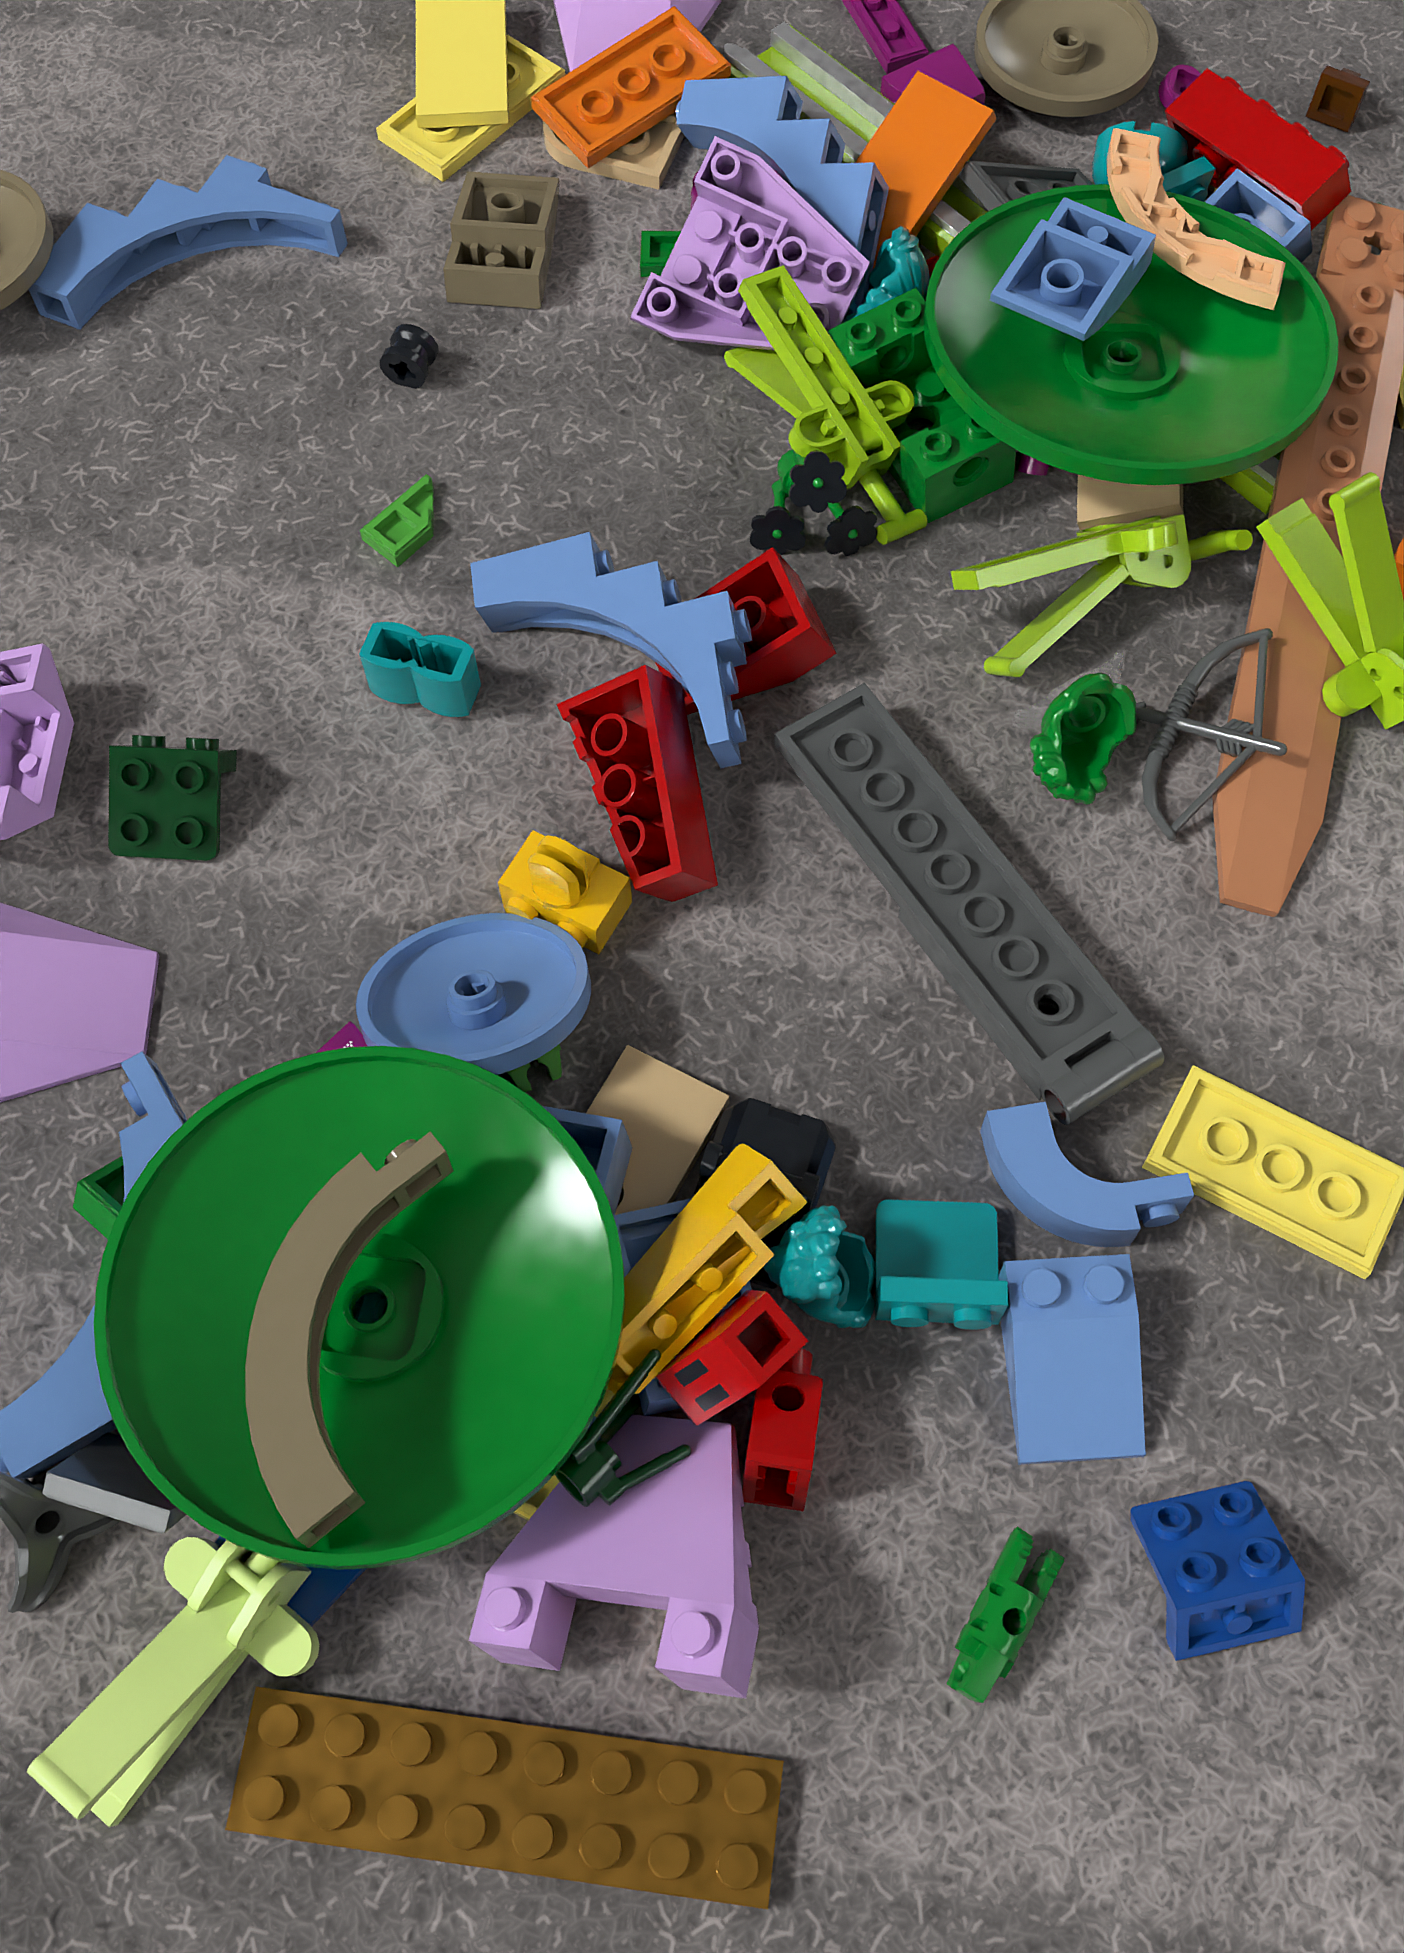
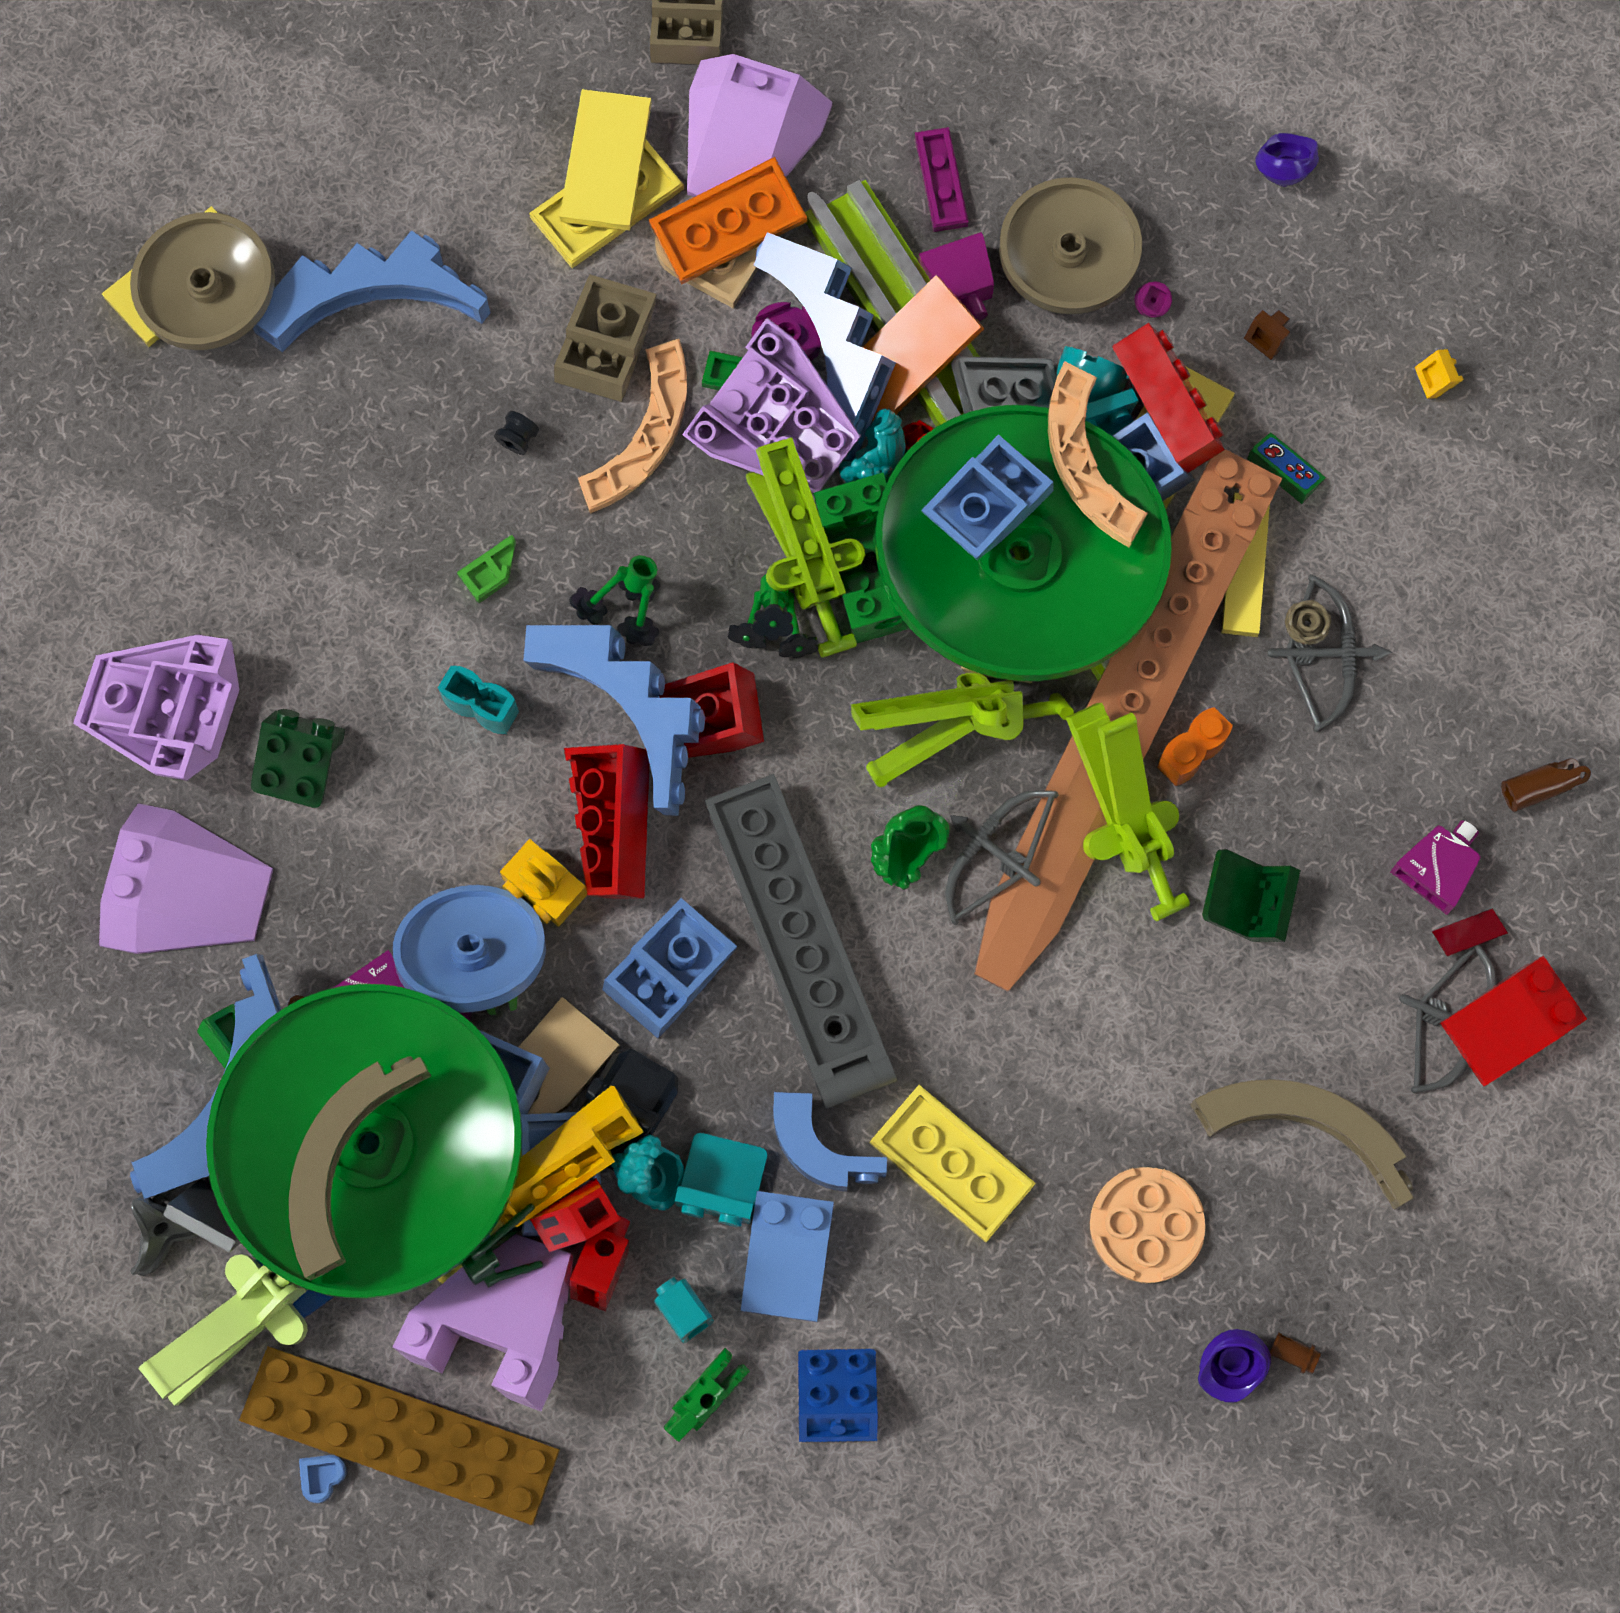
camera: 10 degrees right, 10 degrees up
(382, 1899) = (320, 1475): none -> medium blue tile
(588, 343) = (653, 436): none -> light nougat tile
(611, 500) = (640, 584): none -> plant
(776, 975) = (668, 967): none -> medium blue slope
(935, 1473) = (682, 1309): none -> teal brick

